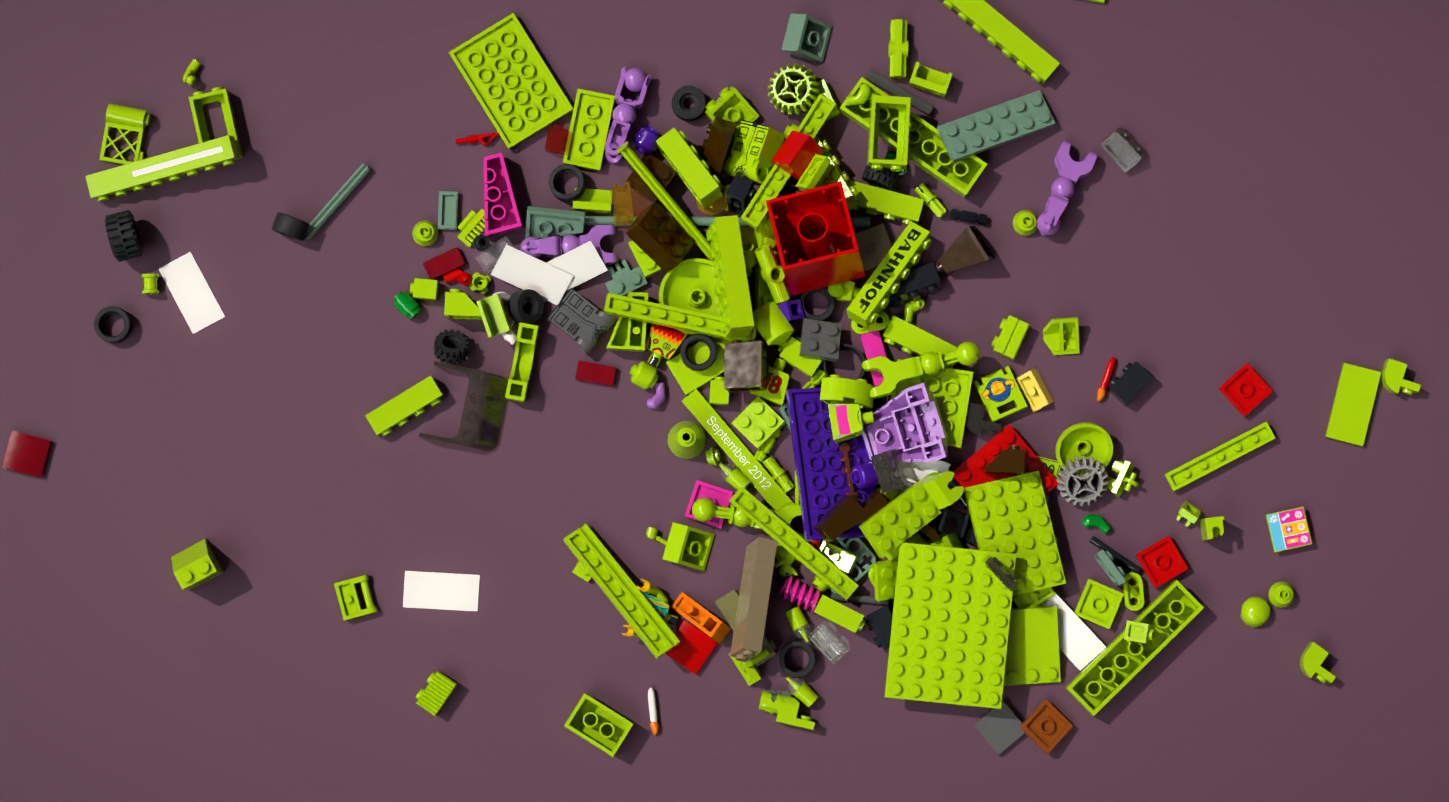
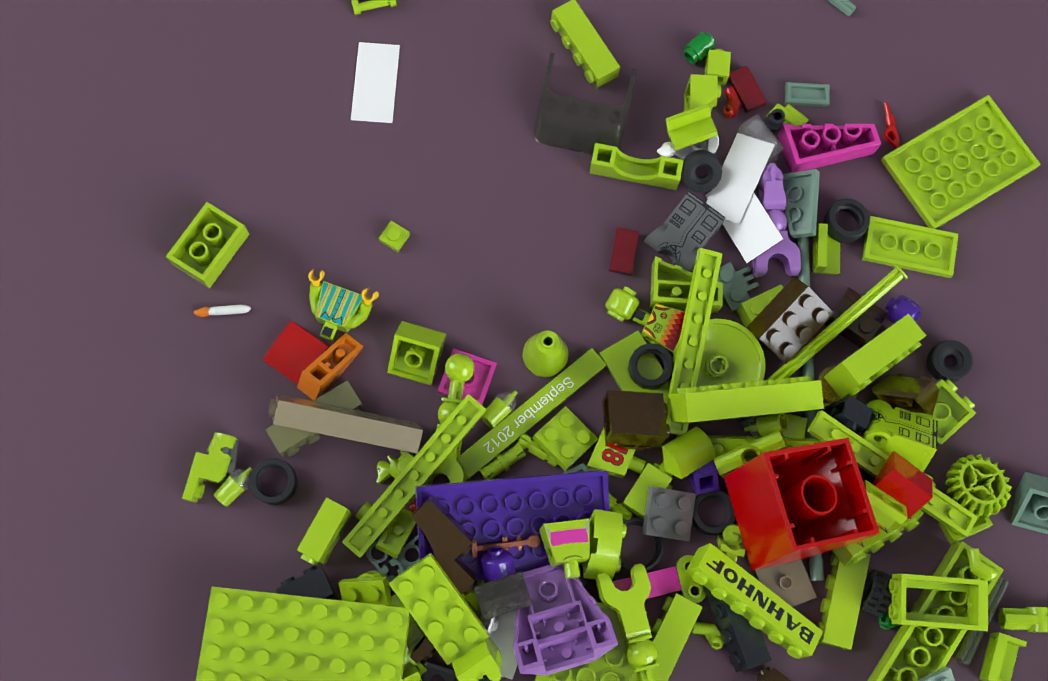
camera: 85 degrees right, 10 degrees down
(429, 237) = (780, 69): lime cone -> none
(435, 693) = (258, 71): lime brick -> none
(447, 354) = (661, 88): black tyre -> none
(477, 278) = (730, 122): lime plate -> none
(556, 139) = (896, 208): clear red brick -> none
(621, 591) = (362, 271): lime plate -> none
(622, 204) = (827, 281): clear yellow hinge -> none
(625, 113) = (935, 286): medium lavender piece -> none
(652, 534) = (432, 312): lime hand -> none
(659, 398) = (595, 322): medium lavender arm -> none
(713, 456) = (525, 383): lime plate -> none
(718, 394) = (598, 388): lime brick -> none
(748, 670) = (263, 422): lime plate -> none
(799, 624) = (317, 484): lime piece -> none
(800, 593) = (354, 485): dark pink piece -> none
(829, 642) = (291, 521): clear brick -> none
(859, 599) = (345, 561): dark grey bar -> none
(931, 200) = (848, 659): lime axle -> none

